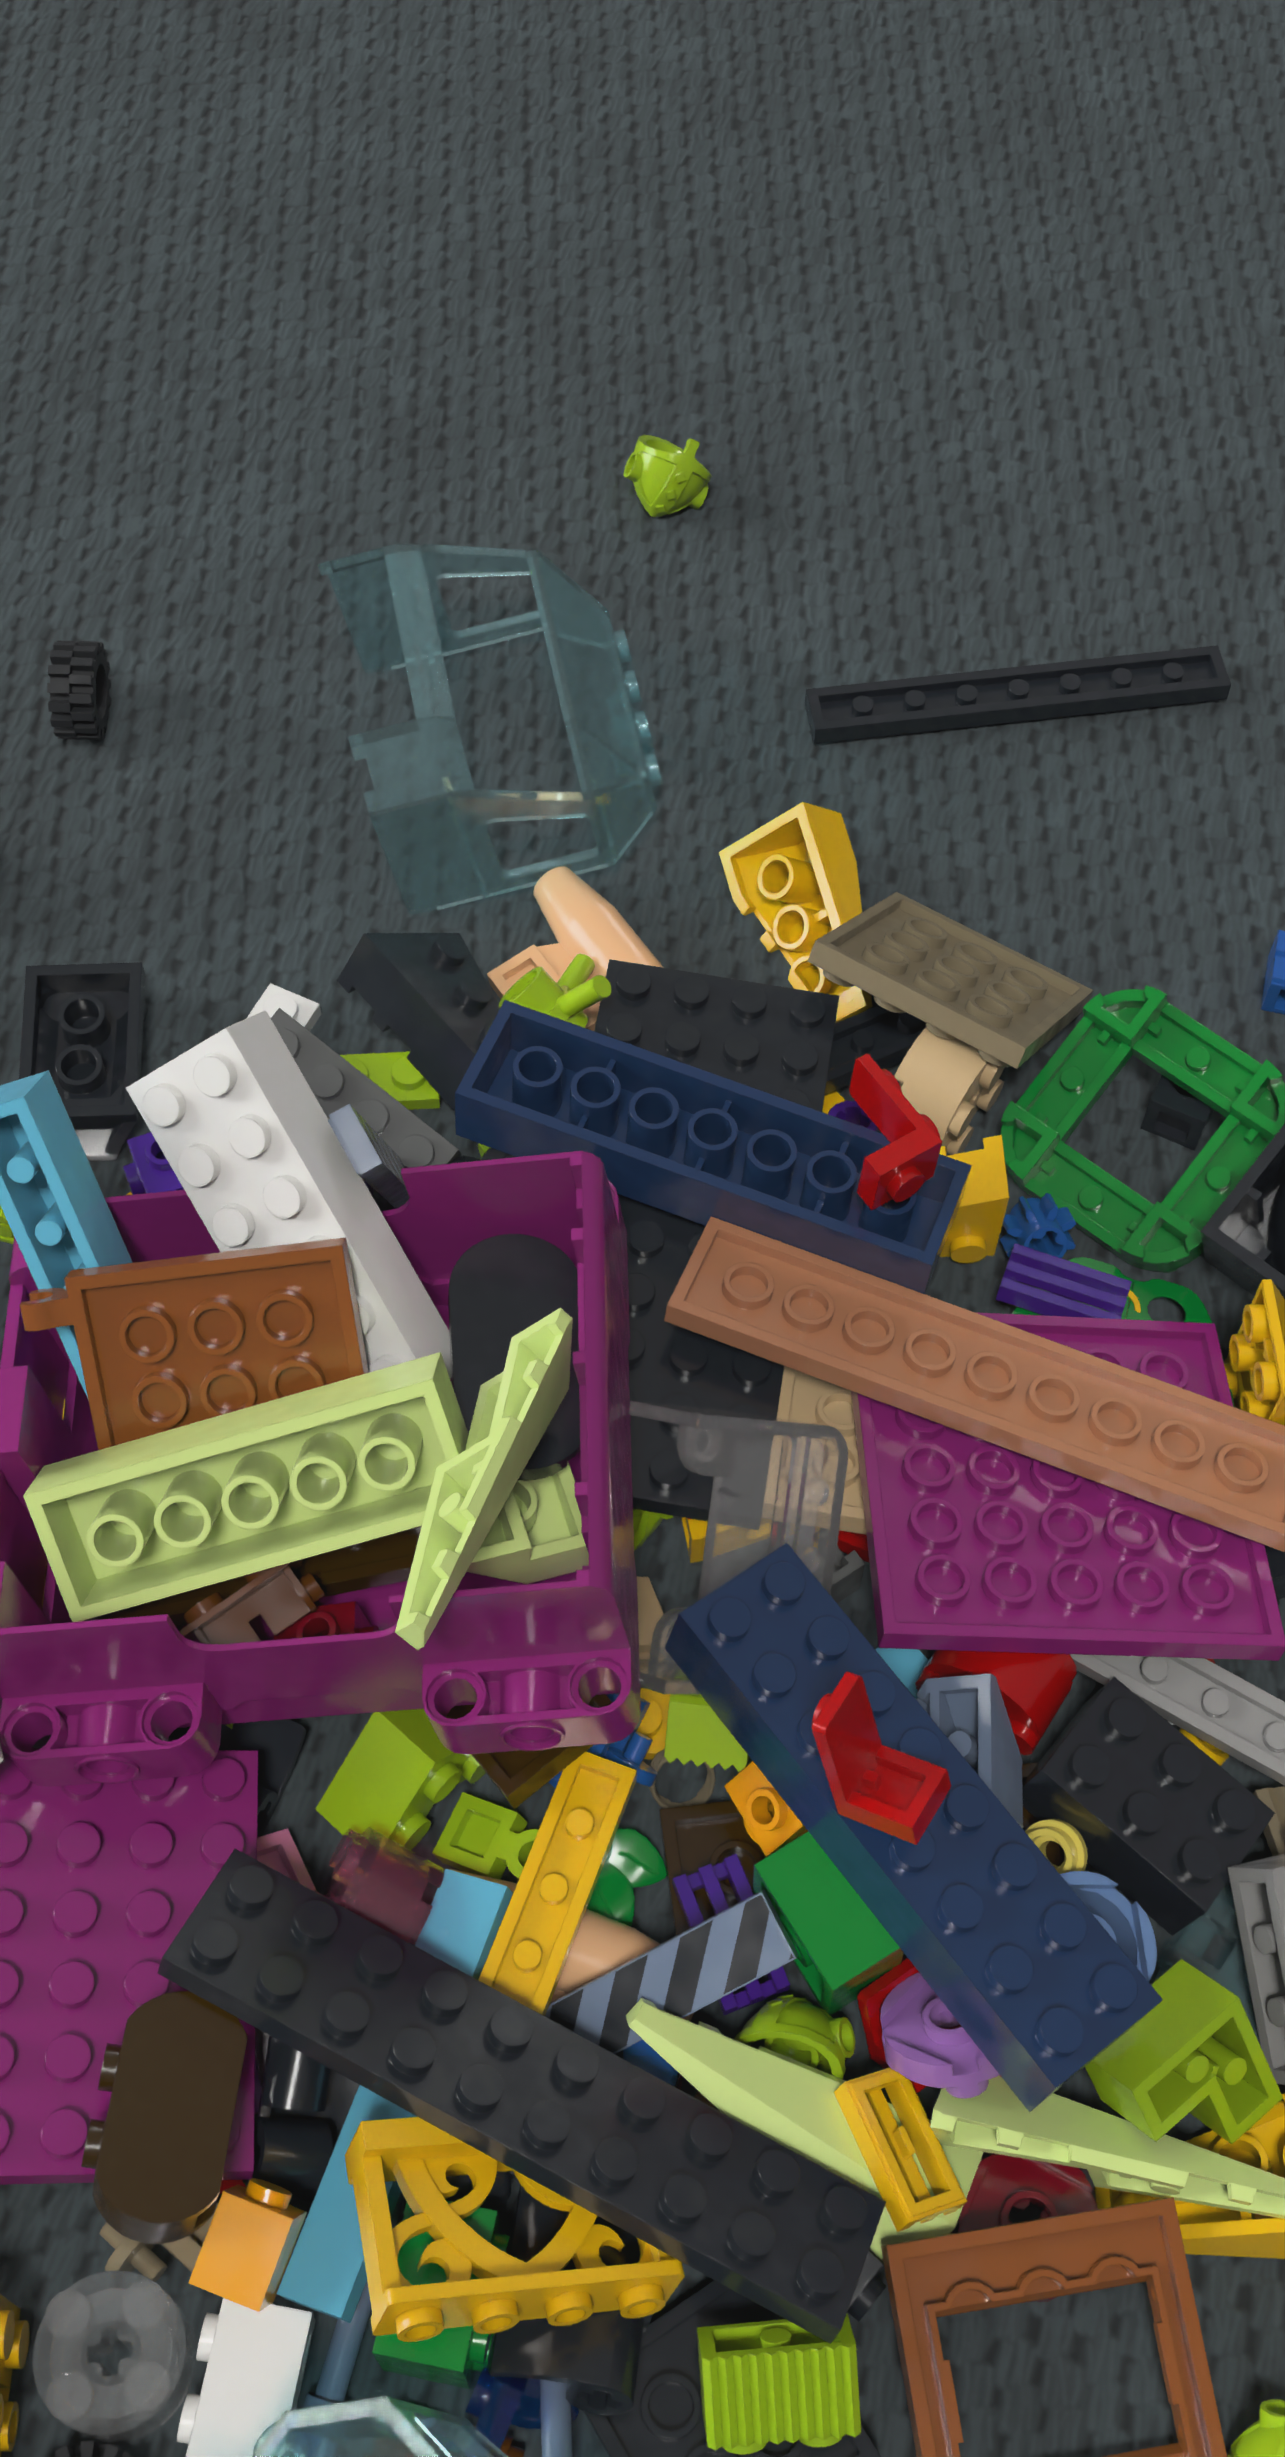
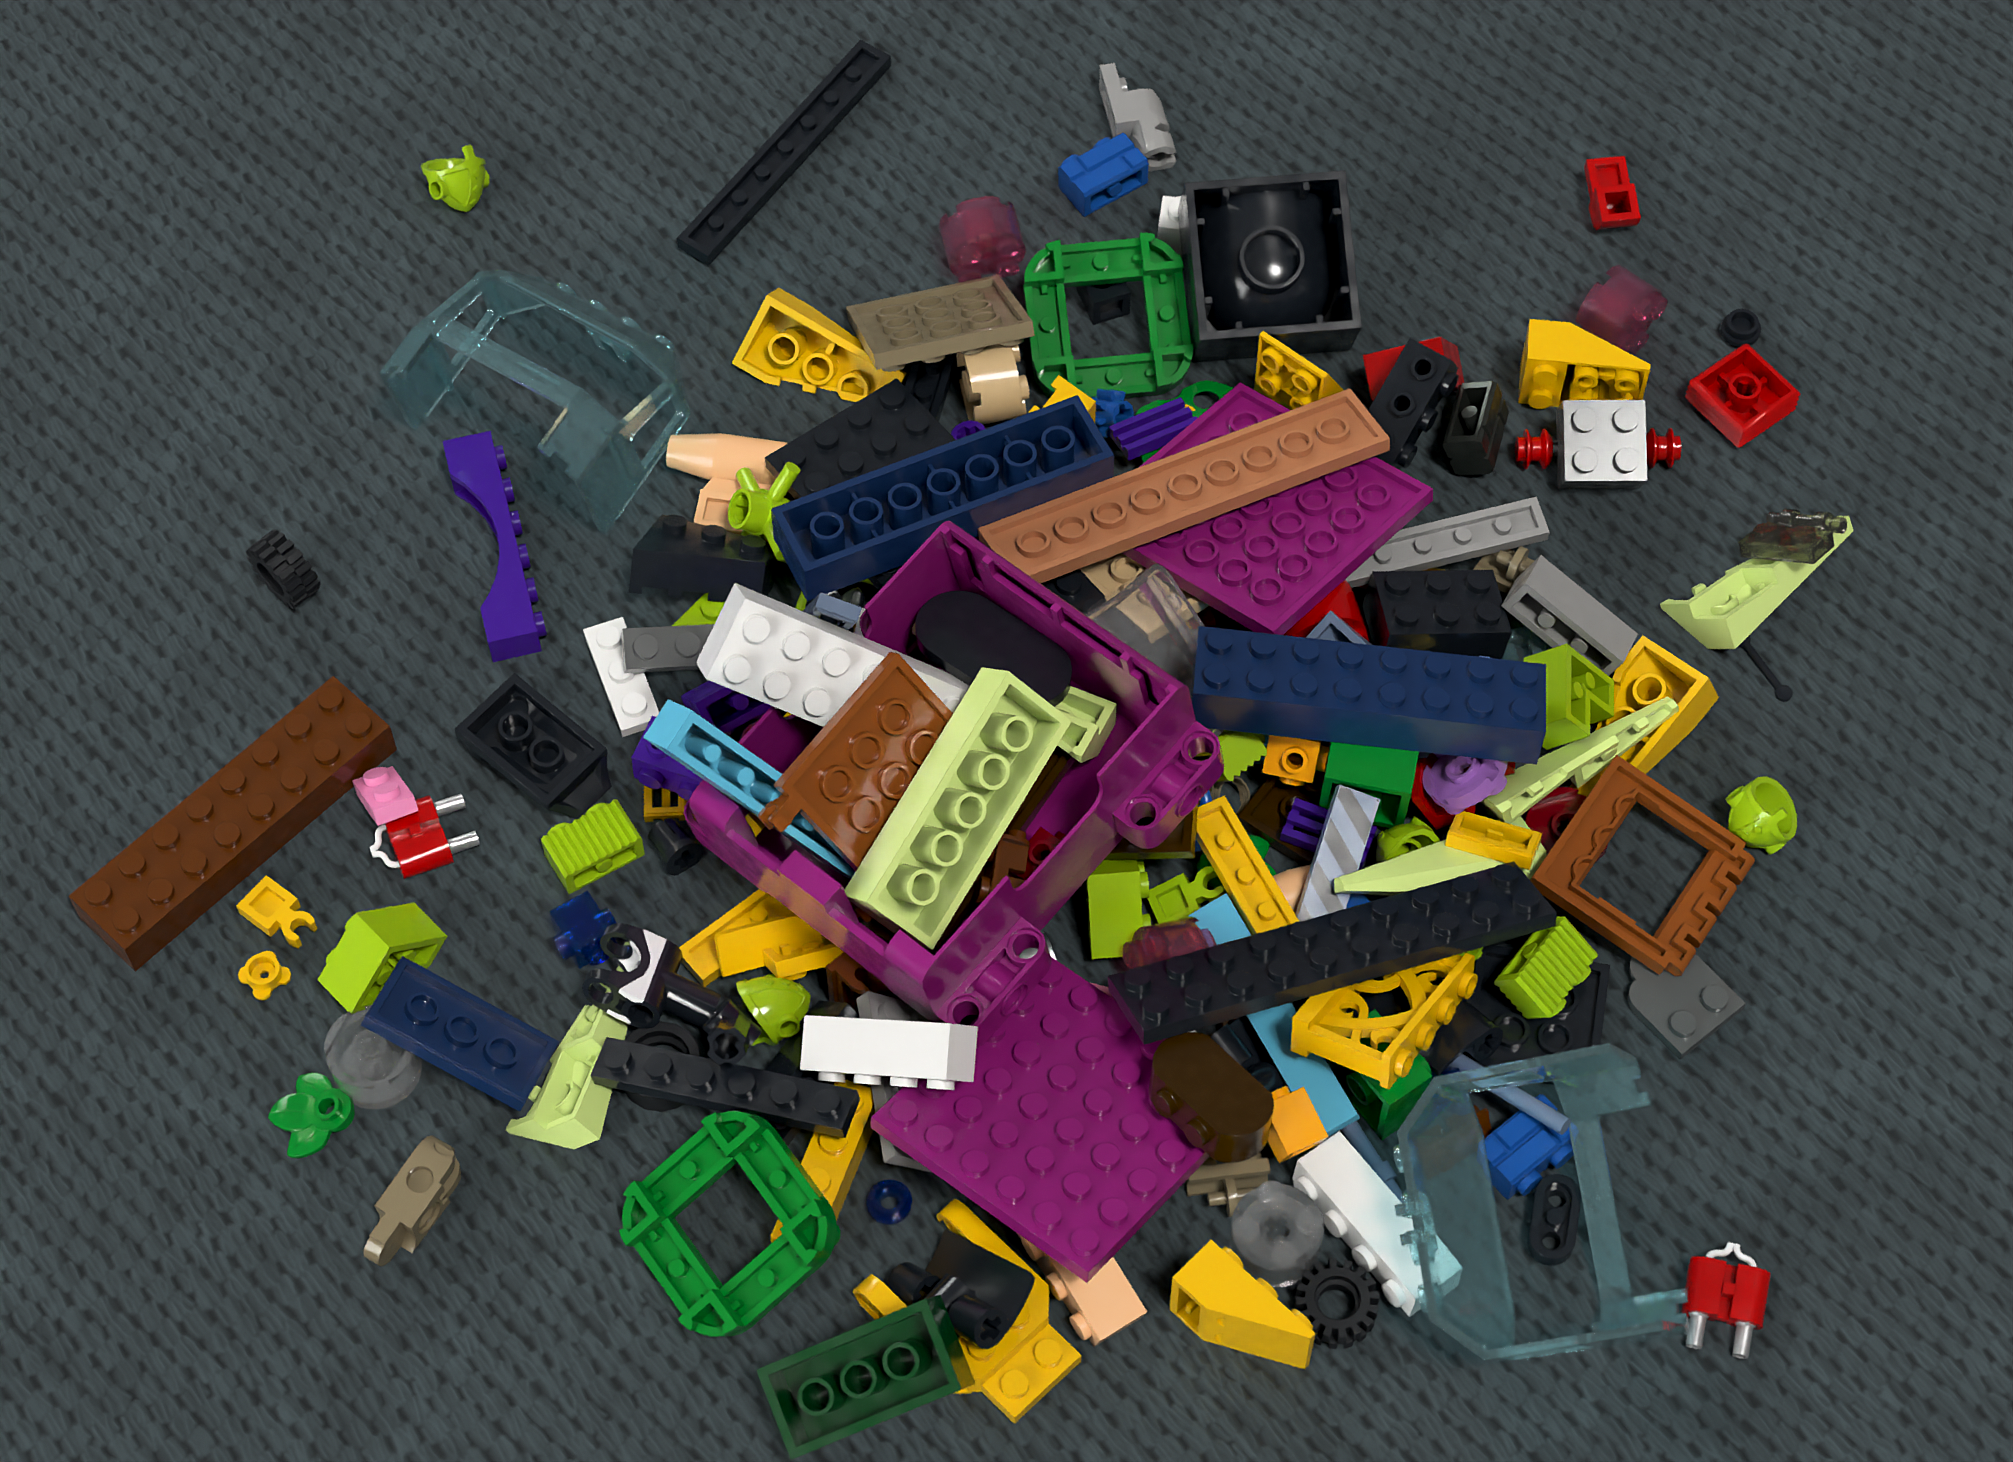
camera: 45 degrees left, 0 degrees up
(223, 906) = (507, 610): none -> dark purple arch
(475, 1484) = (1056, 674): yellowish green wedge -> none
(870, 1779) = (1358, 676): red bracket -> none
(914, 1139) = (1032, 401): red bracket -> none
(1107, 934) = (982, 239): none -> clear pink brick

